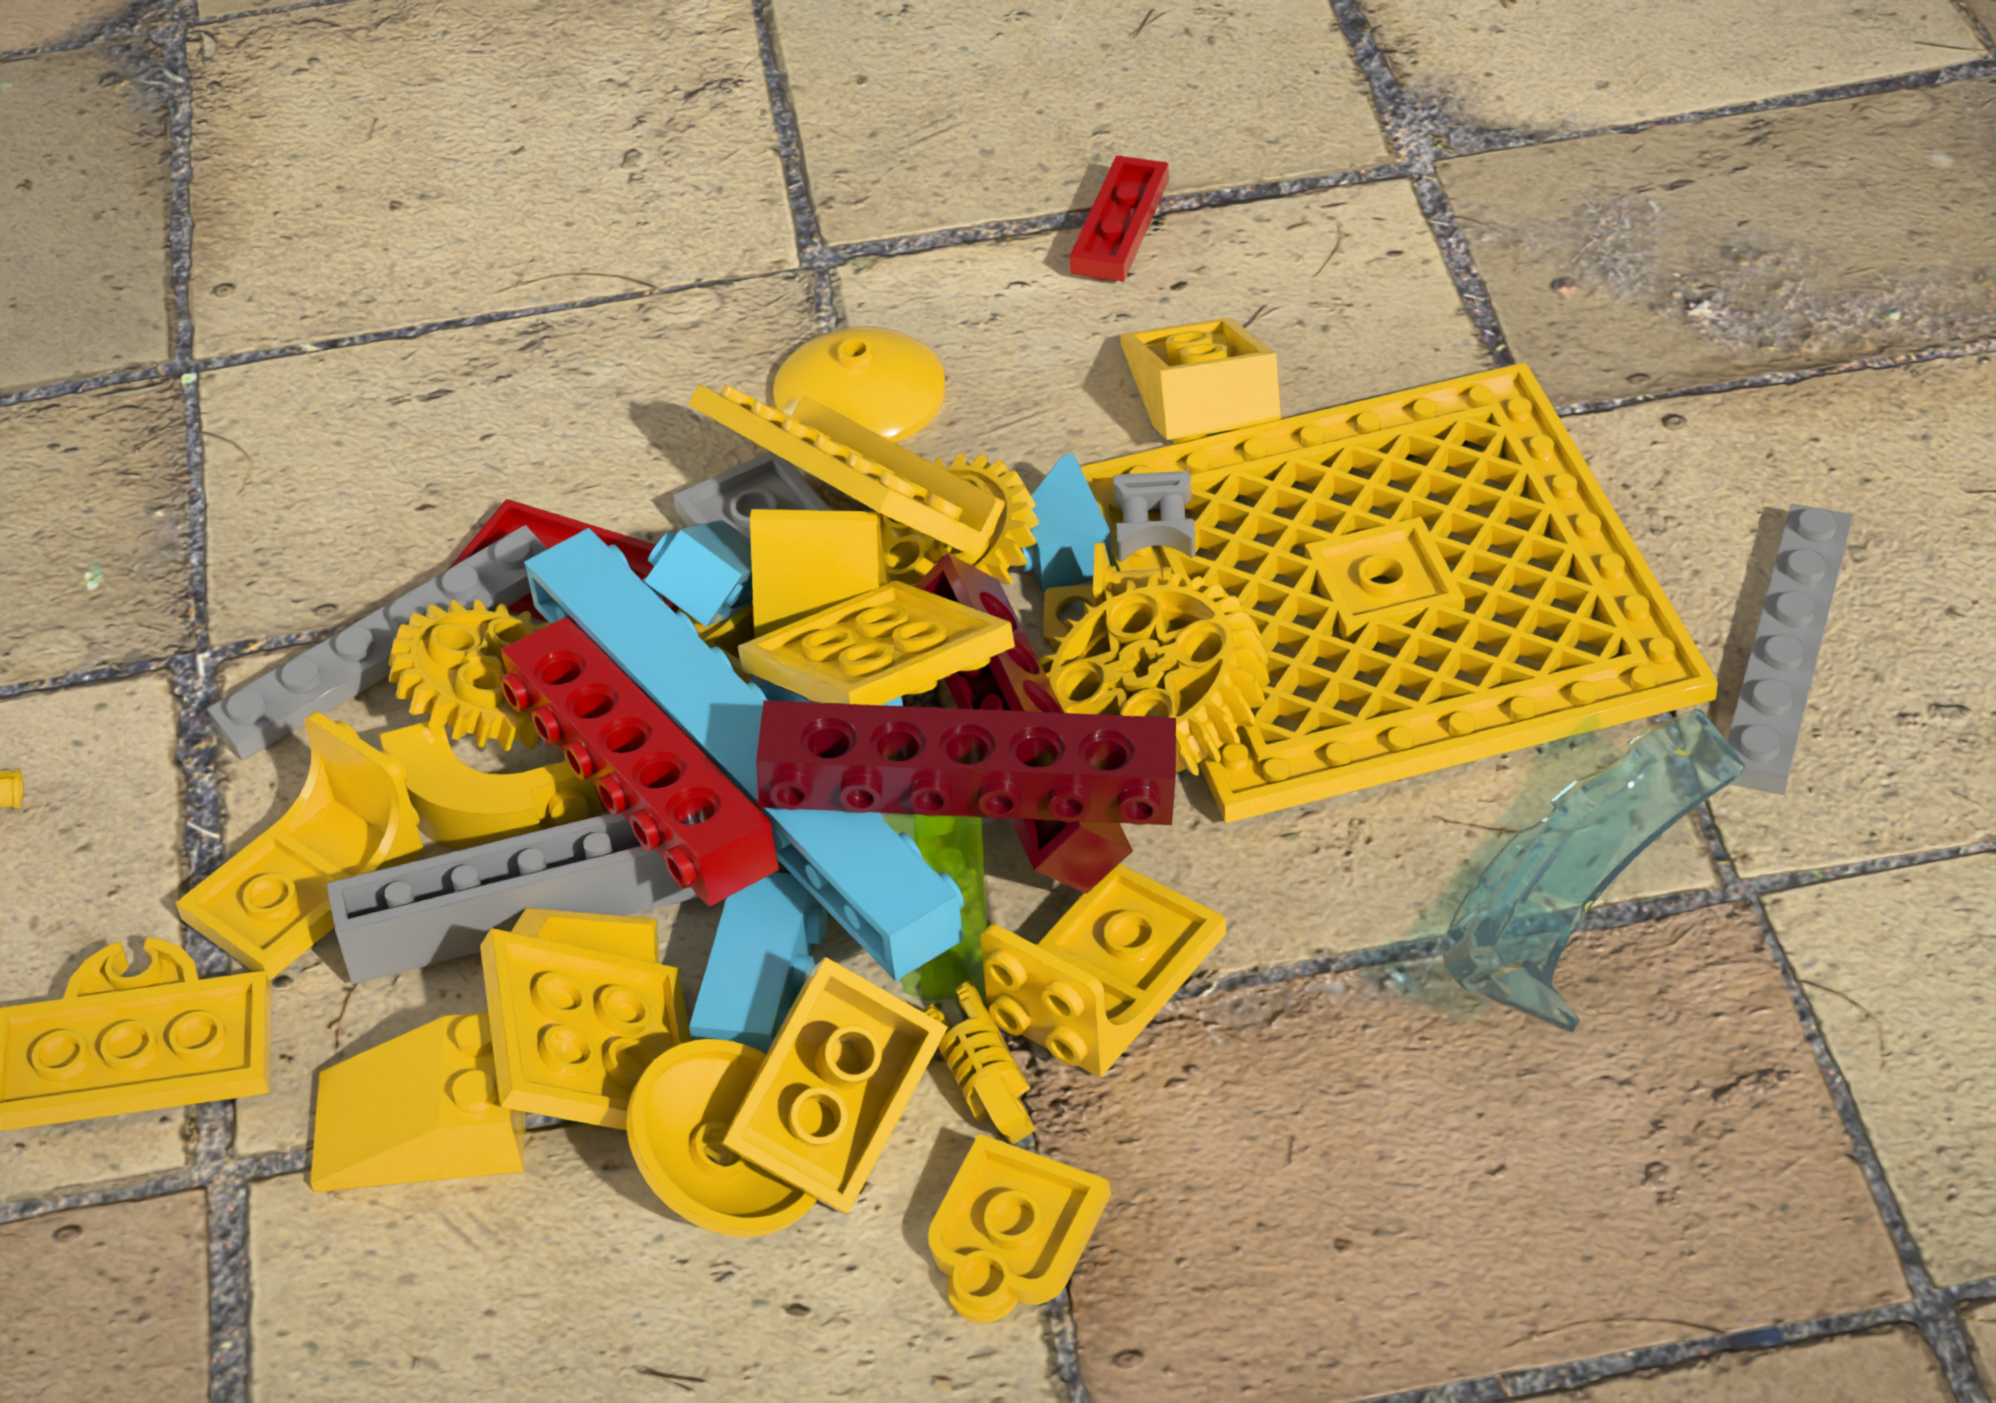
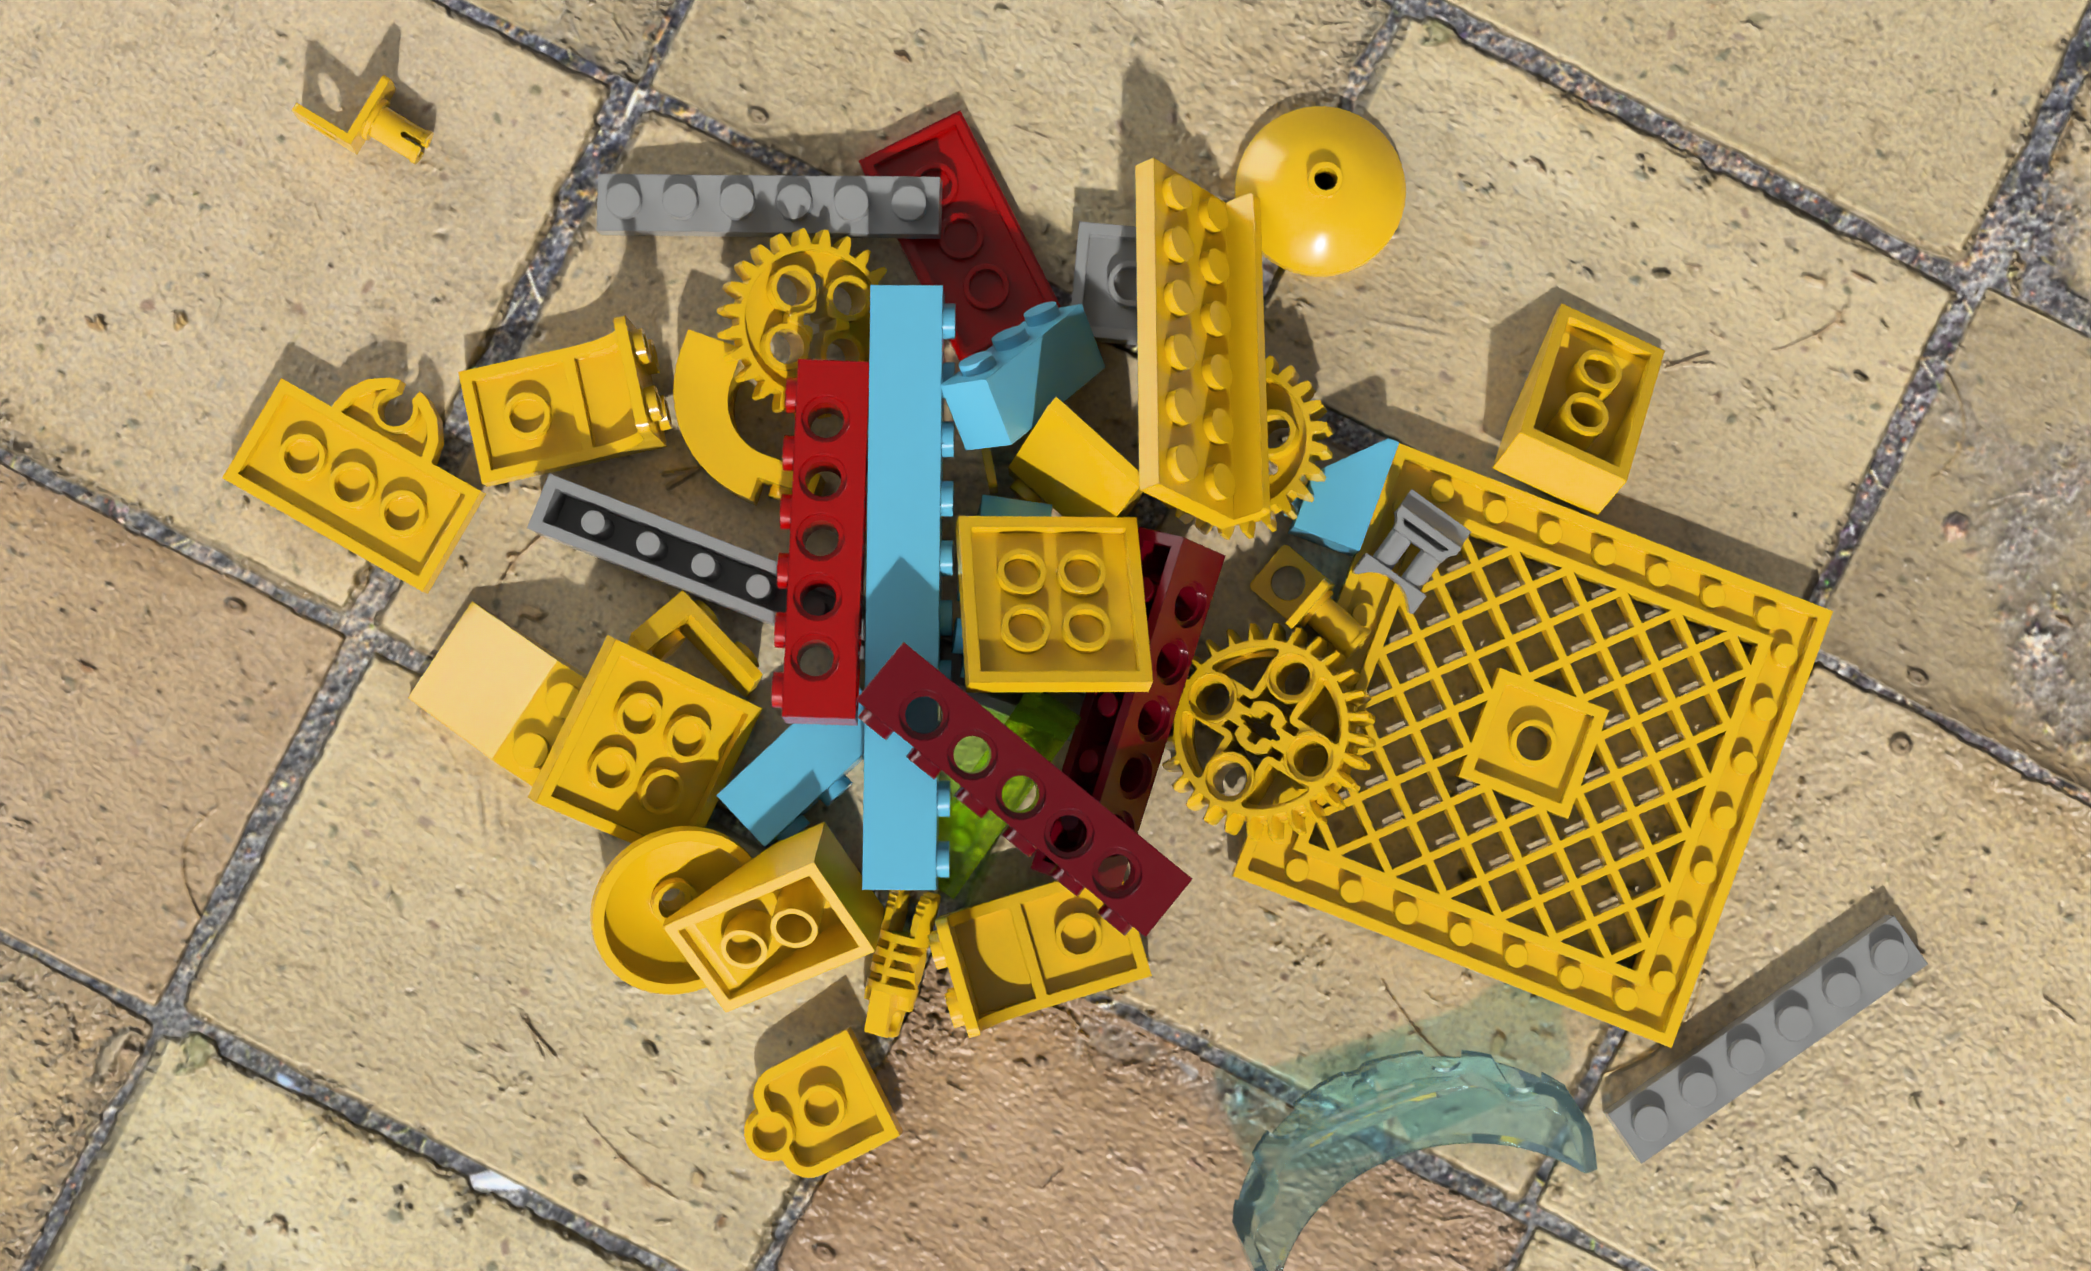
camera: 30 degrees right, 40 degrees up
(1119, 218) = (1671, 164): red plate -> none

